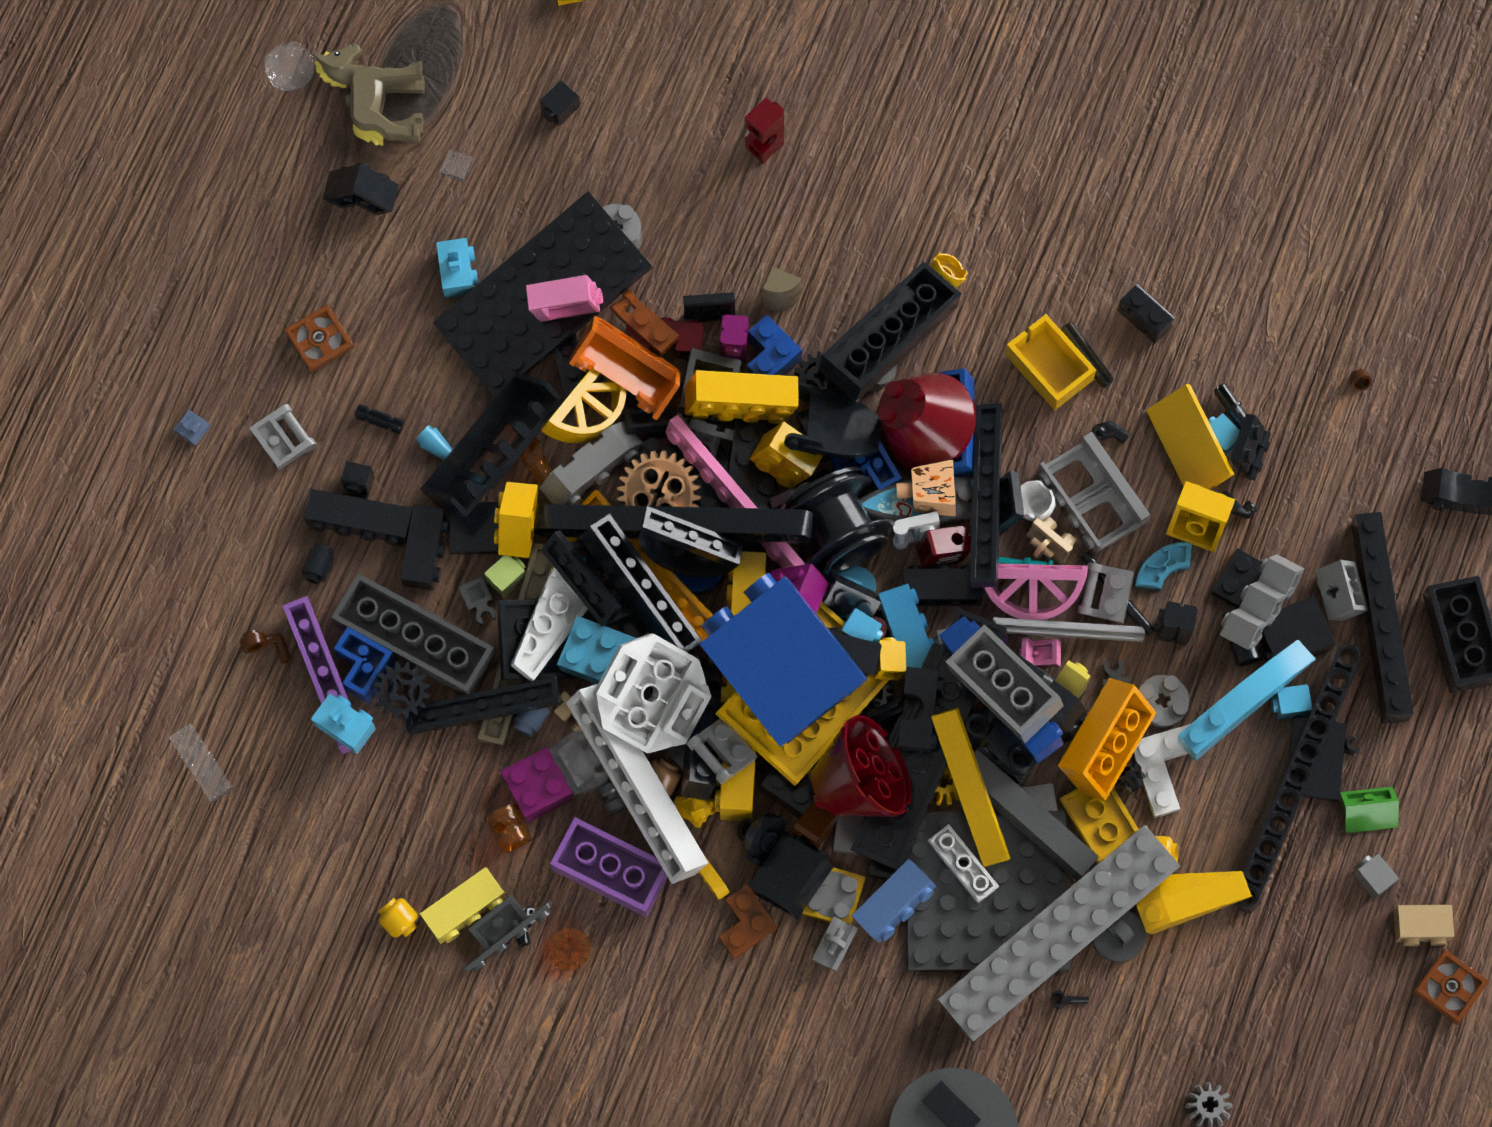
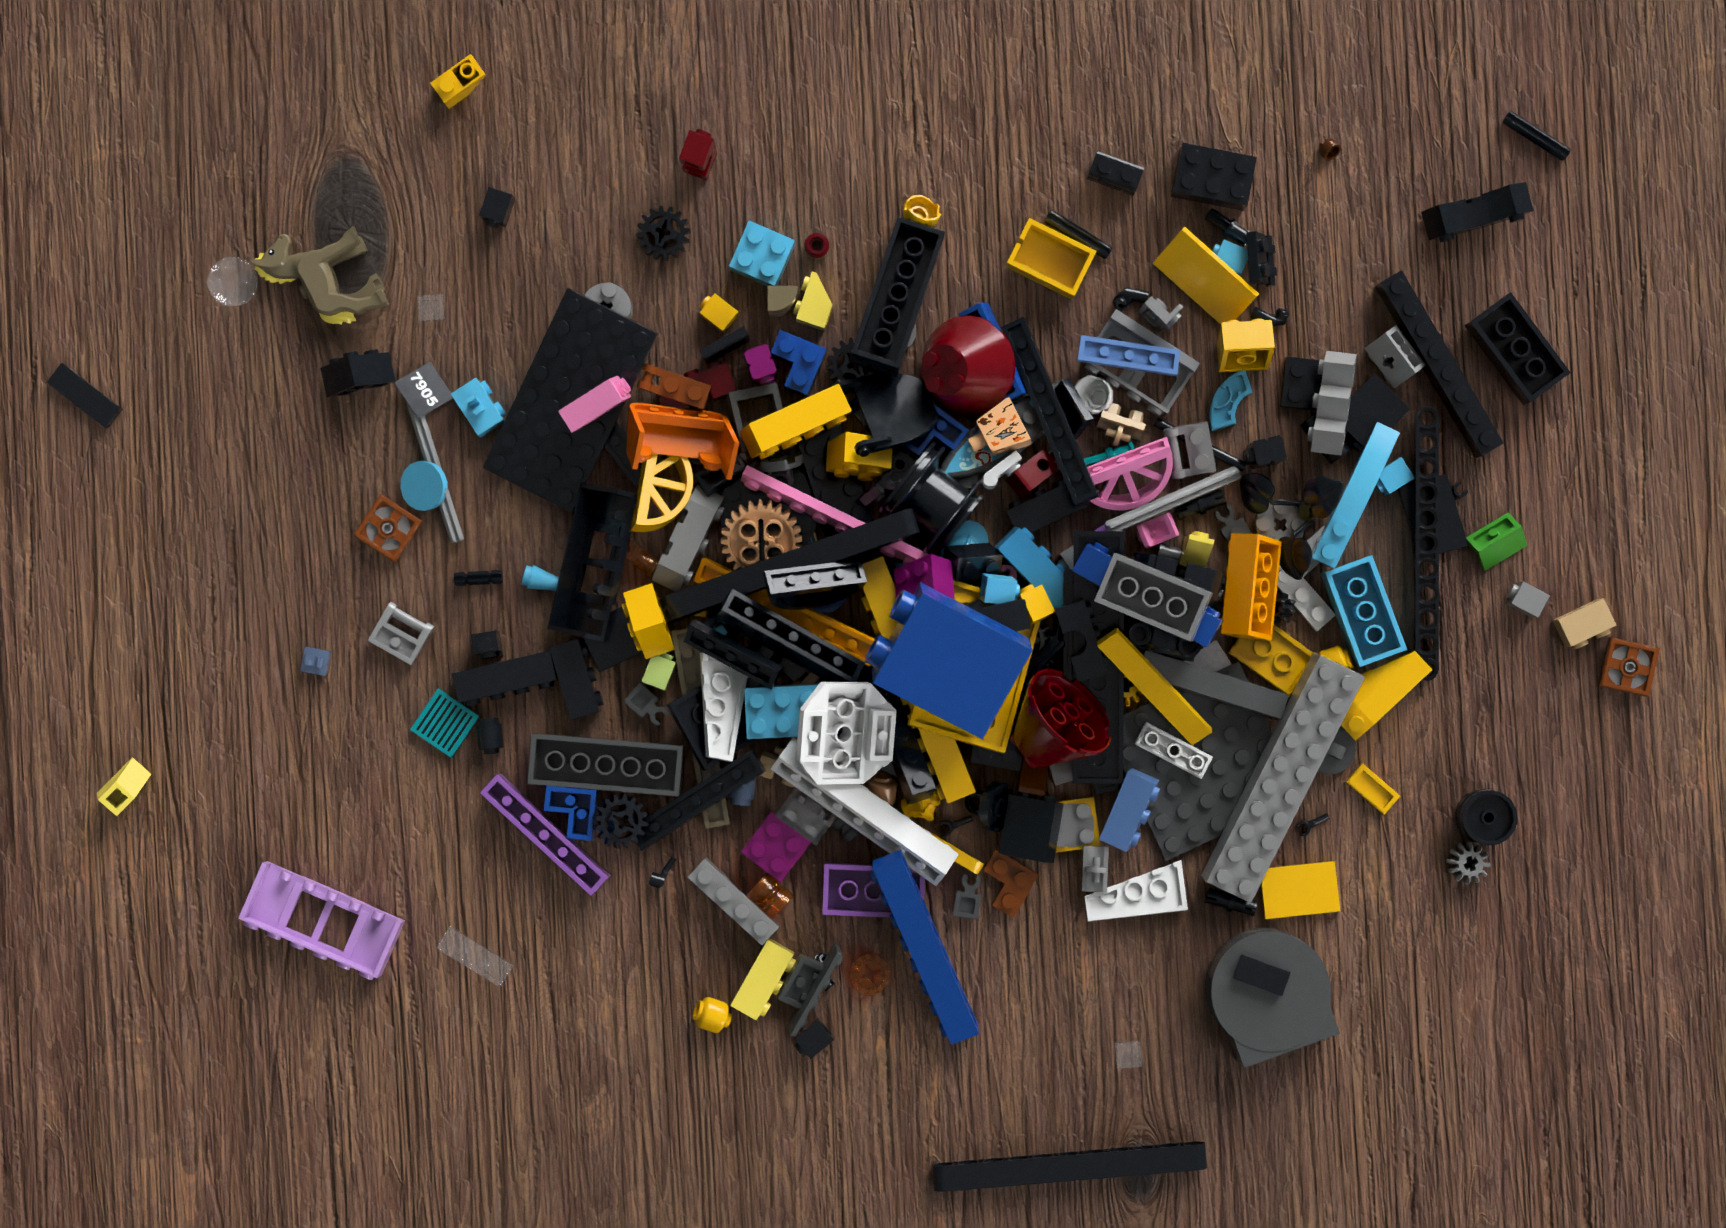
camera: 25 degrees left, 15 degrees up
(41, 624) = (273, 903): none -> lavender window
(106, 107) = (84, 395): none -> black tile
(256, 641) = (469, 829): reddish brown plate -> none
(282, 535) = (445, 723): none -> teal tile
(344, 723) = (586, 875): medium azure brick -> none
(370, 313) = (423, 485): none -> medium azure tile
(387, 308) = (429, 454): none -> light grey axle
(409, 769) = (657, 880): none -> black hand
(413, 232) = (424, 390): none -> sticker
(471, 817) = (733, 901): none -> light grey arch
(484, 985) = (813, 1039): none -> black brick
(634, 939) = (925, 947): none -> blue brick
(696, 921) = (967, 901): none -> dark grey plate
(698, 179) = (674, 237): none -> black gear
(717, 277) = (718, 312): none -> yellow brick
(718, 844) = (955, 824): none -> black hand
(727, 745) = (931, 747): light grey plate -> none
(782, 244) = (762, 255): none -> medium azure brick
(809, 312) = (815, 306): none -> light yellow slope
(837, 254) = (816, 237): none -> dark red plate
(876, 995) = (1143, 895): none -> white wing
(954, 1038) = (1230, 902): none -> black pin
(1028, 1058) = (1300, 890): none -> yellow tile
(1084, 476) = (1128, 355): none -> medium blue plate
(1093, 648) = (1201, 505): none -> black pin
(1128, 454) = (1155, 313): none -> light grey bracket
(1144, 993) = (1372, 788): none -> yellow tile
(1208, 814) = (1363, 611): none -> medium azure brick
(1212, 678) = (1321, 498): none -> black plant
(1238, 355) = (1213, 176): none -> black brick
(1261, 1066) = (1471, 813): none -> black wheel

